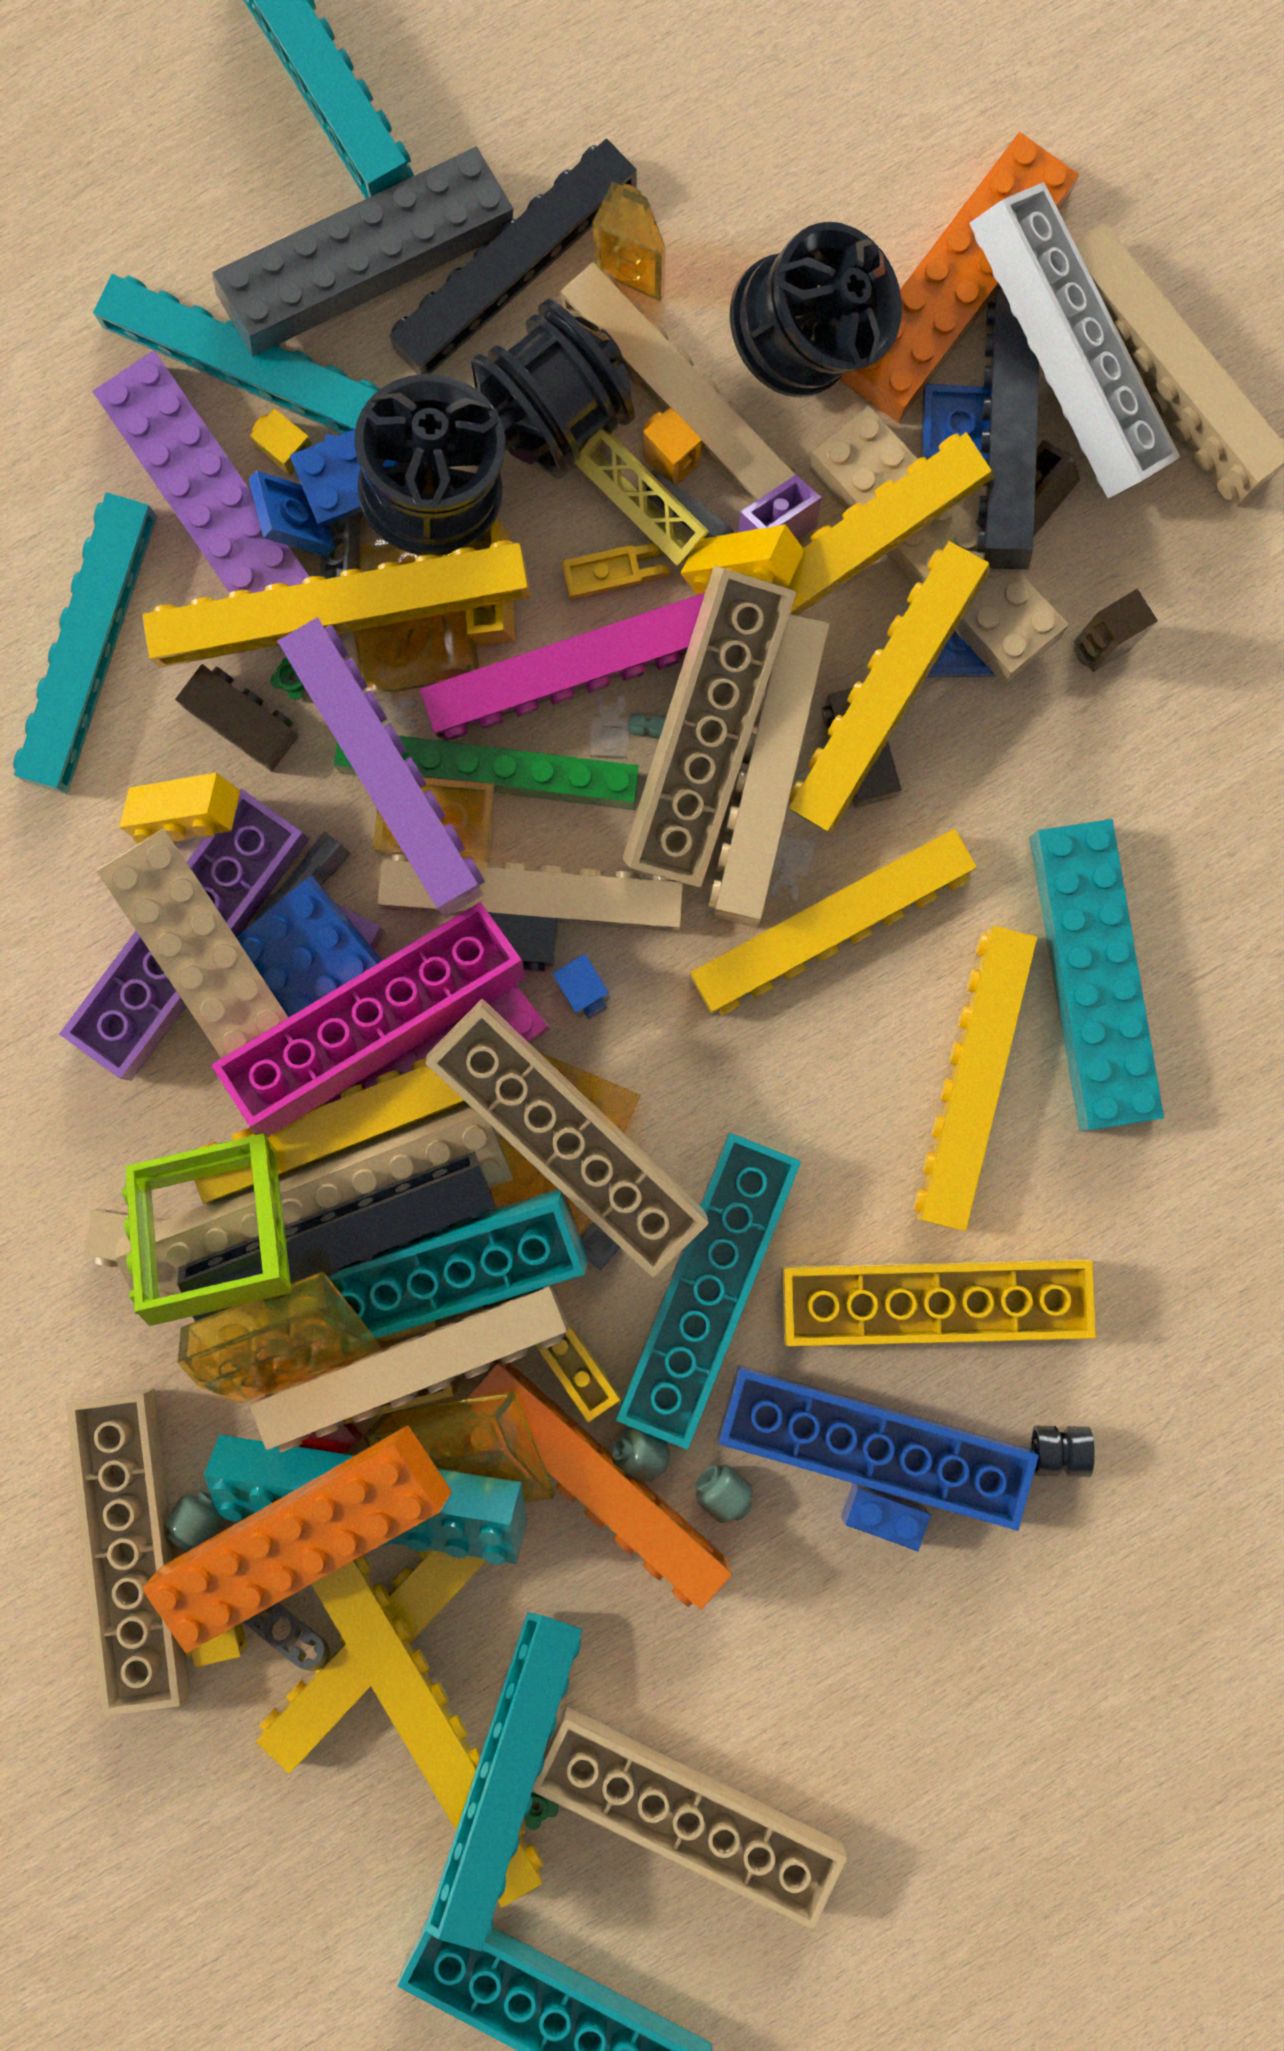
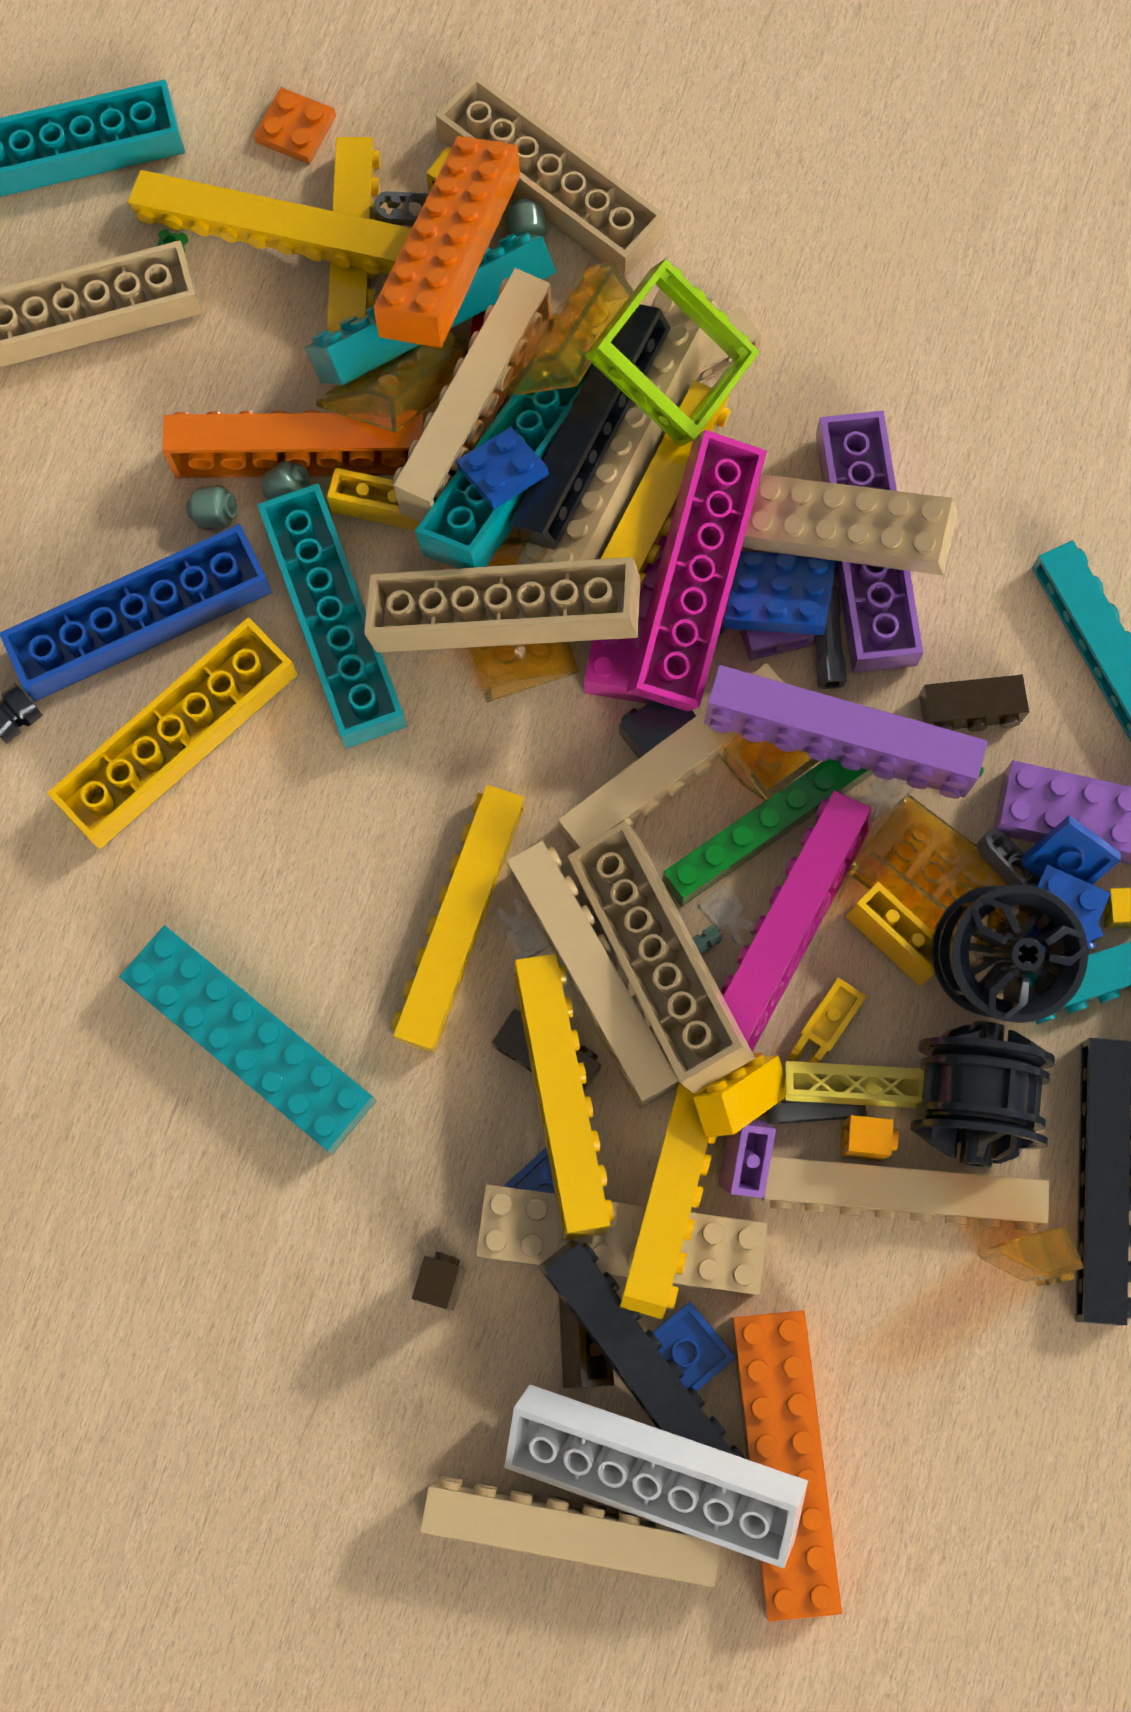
camera: 140 degrees right, 10 degrees down
(182, 807) = (947, 605): yellow brick -> none
(311, 1832) = (295, 125): none -> orange plate
(346, 602) = (976, 817): yellow brick -> none
(454, 1263) = (502, 467): none -> blue plate
(504, 1782) = (201, 231): teal brick -> none
(582, 987) = (585, 725): blue brick -> none
(849, 314) = (824, 1332): black wheel -> none
(886, 1516) = (91, 573): blue brick -> none
(975, 1078) = (272, 901): yellow brick -> none

